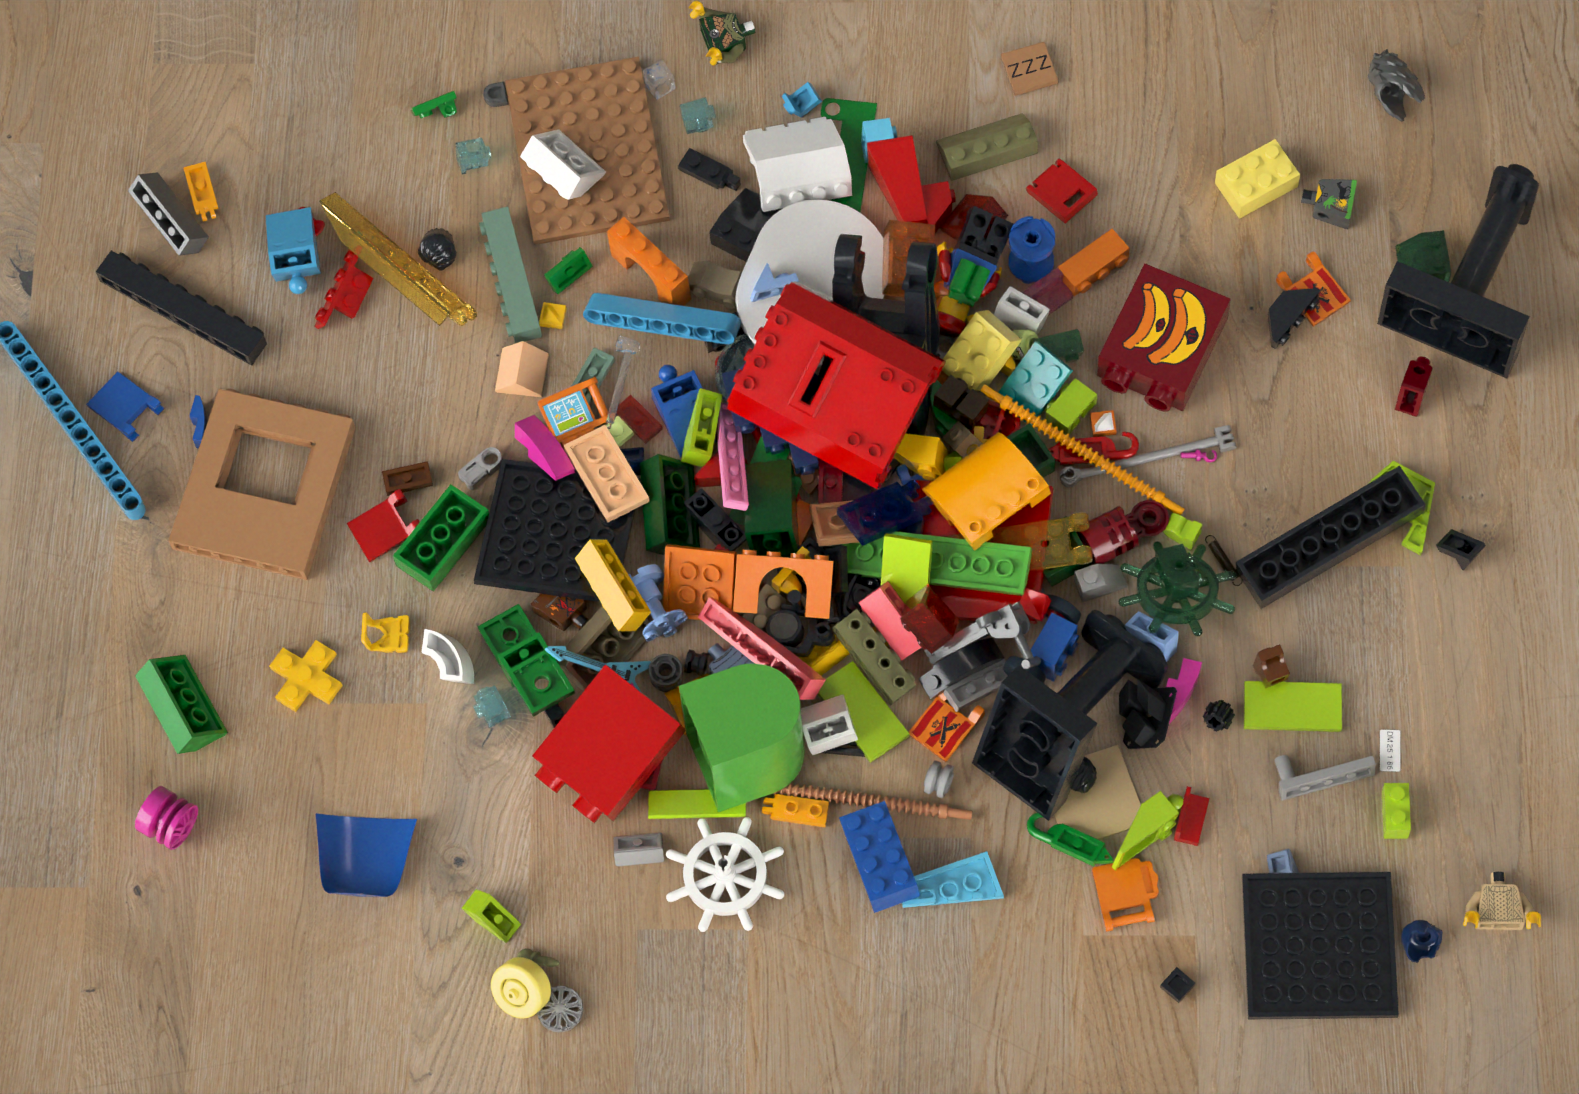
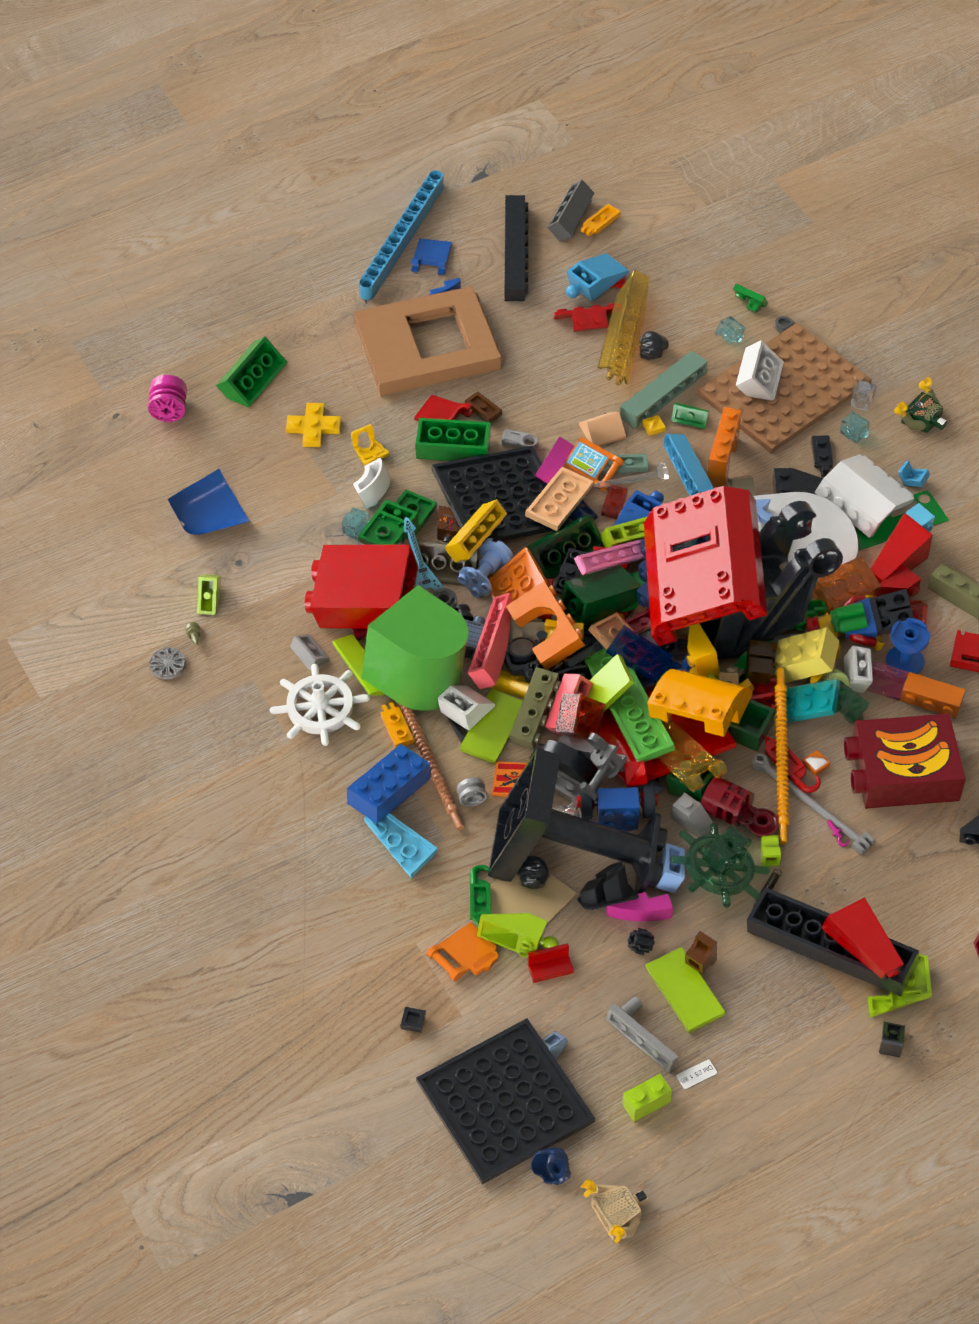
camera: 55 degrees right, 15 degrees down
(520, 987) = (166, 631): light yellow wheel -> none
(620, 431) = (596, 497): yellowish green plate -> none
(1073, 402) = (812, 731): lime piece -> none
(1360, 505) = (864, 937): none -> red slope

